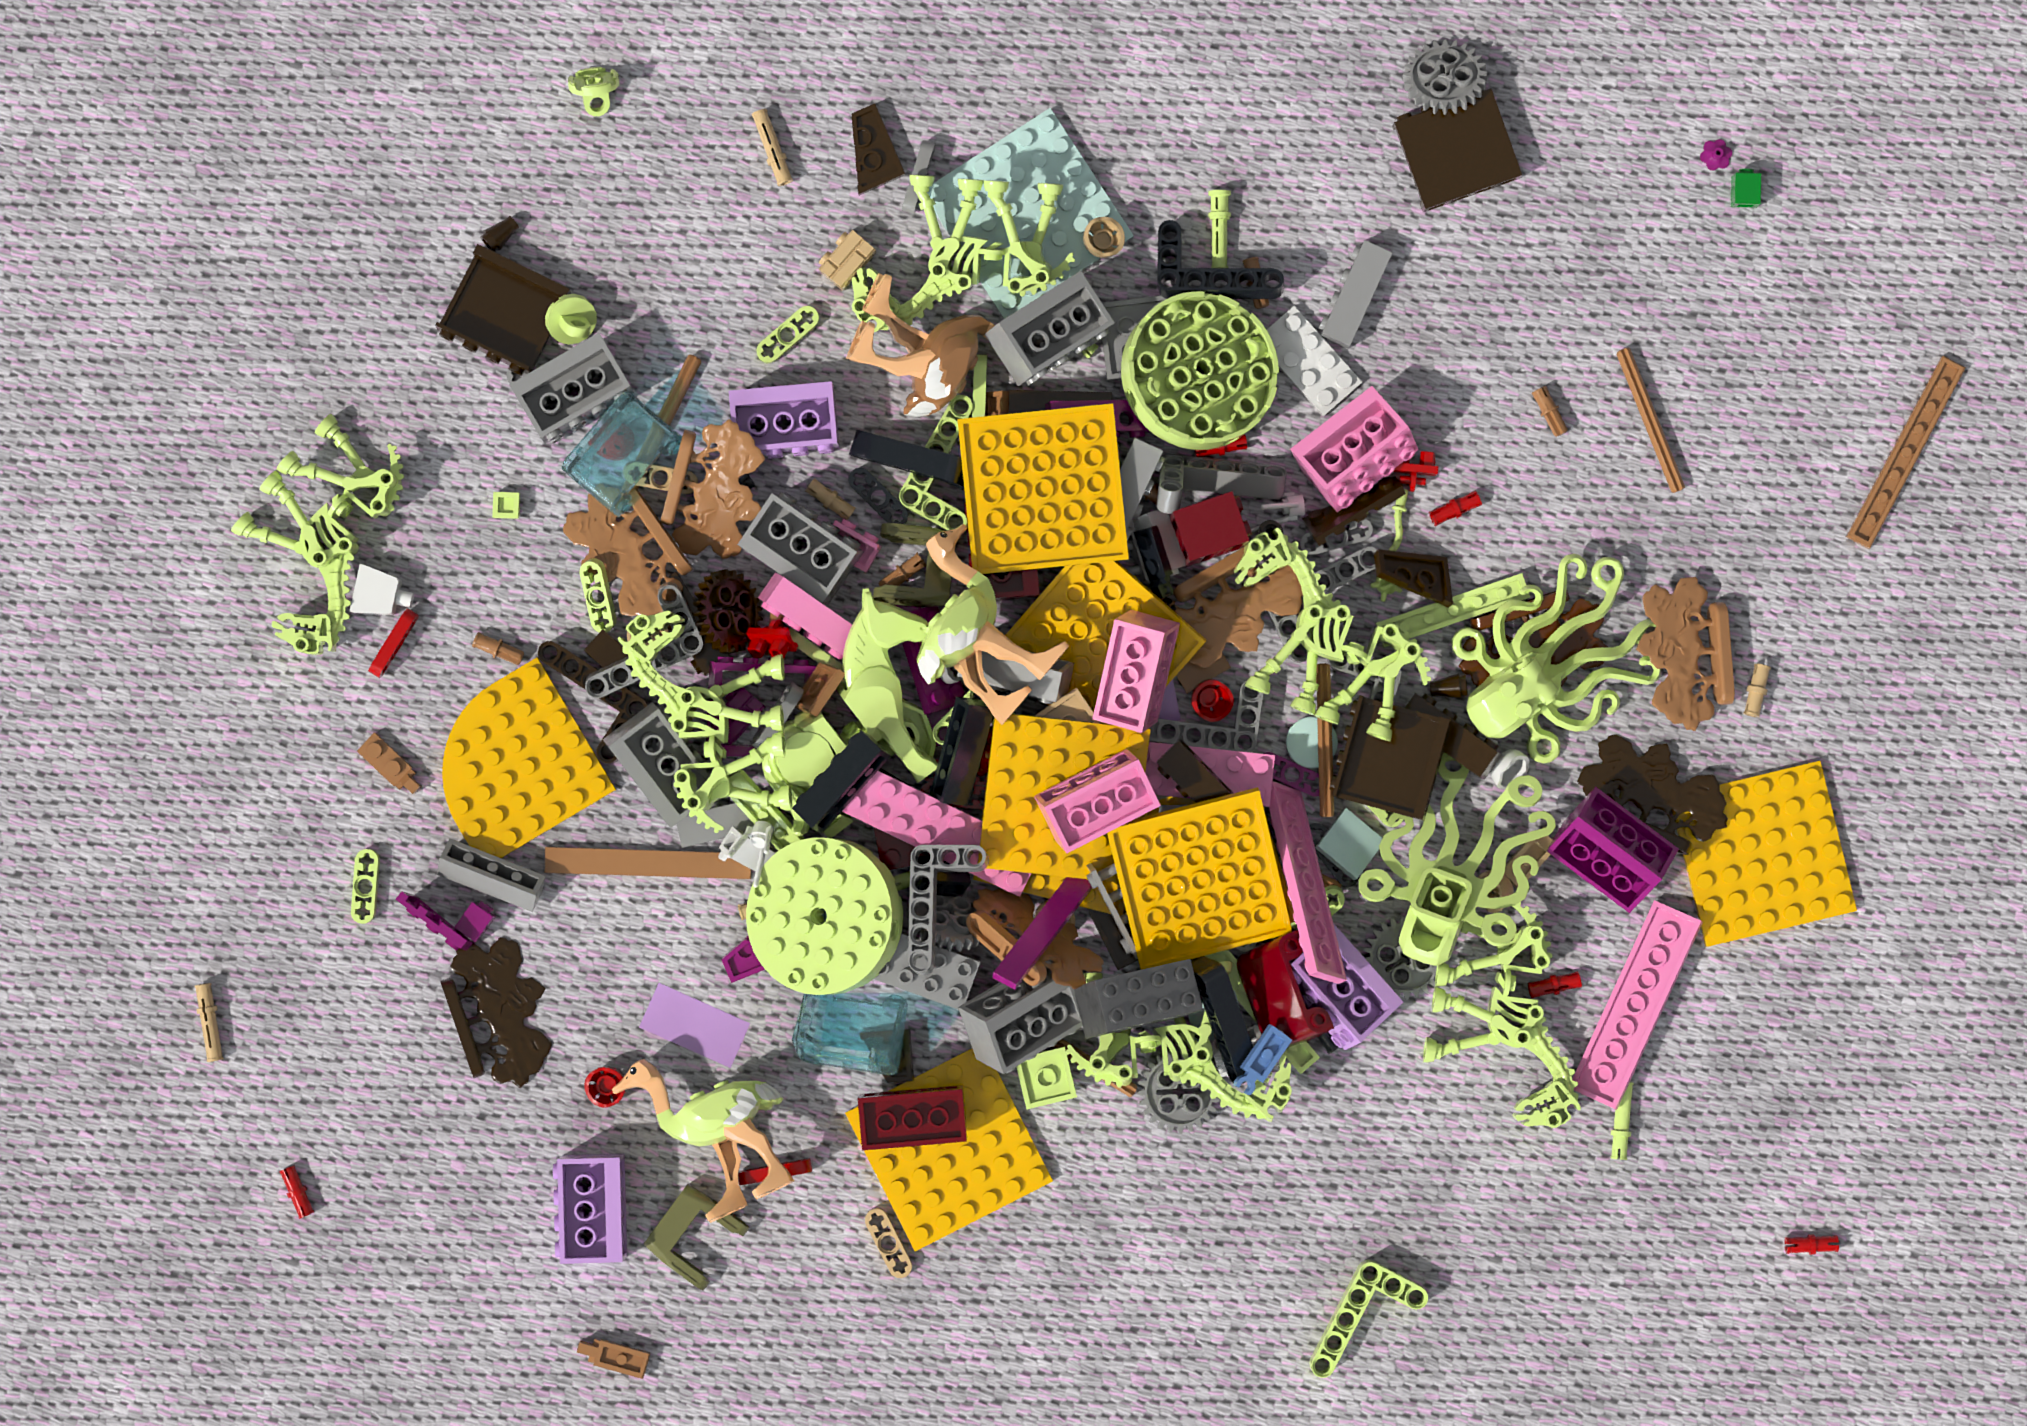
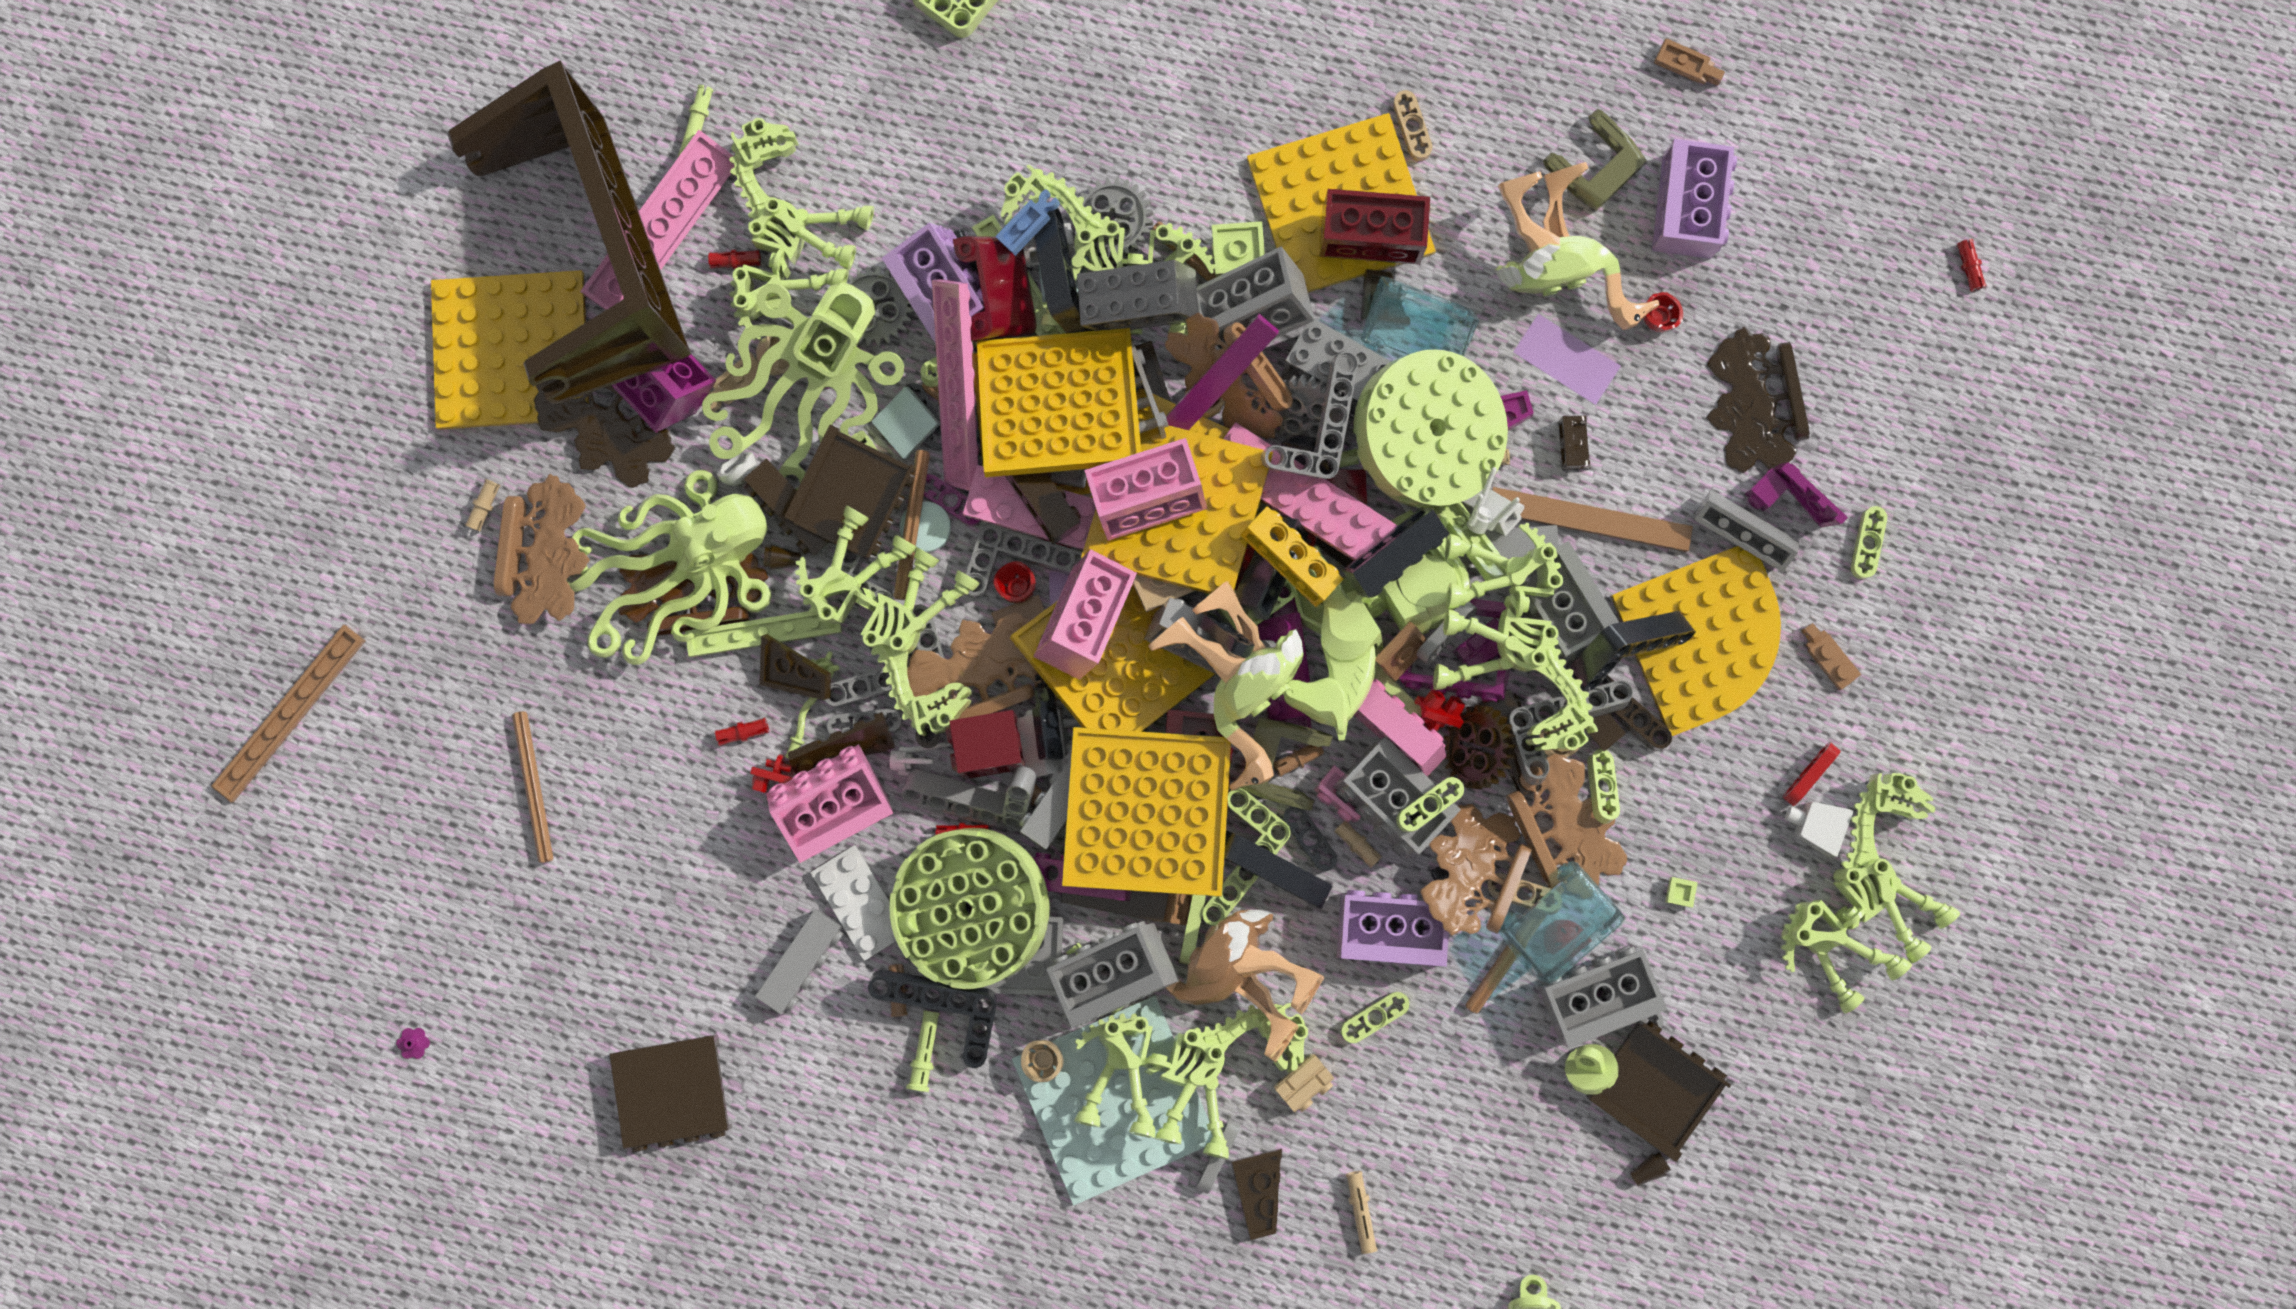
camera: 175 degrees left, 5 degrees down
(209, 1022) = (2038, 448): tan pin -> none
(498, 648) = (1708, 751): medium nougat axle -> none
(595, 736) = (1626, 640): none -> black beam
(674, 937) = (1574, 443): none -> dark brown hinge
(759, 1174) = (1498, 207): red beam -> none
(777, 524) = (1449, 799): none -> yellowish green beam
(957, 760) = (1278, 555): none -> yellow brick
(994, 670) = (1226, 634): none -> black beam
(1445, 77) = (667, 1168): light grey gear -> none
(1550, 411) = (630, 812): medium nougat axle -> none
(1613, 879) = (643, 328): none -> dark brown piece
(1746, 189) = (389, 1002): green brick -> none

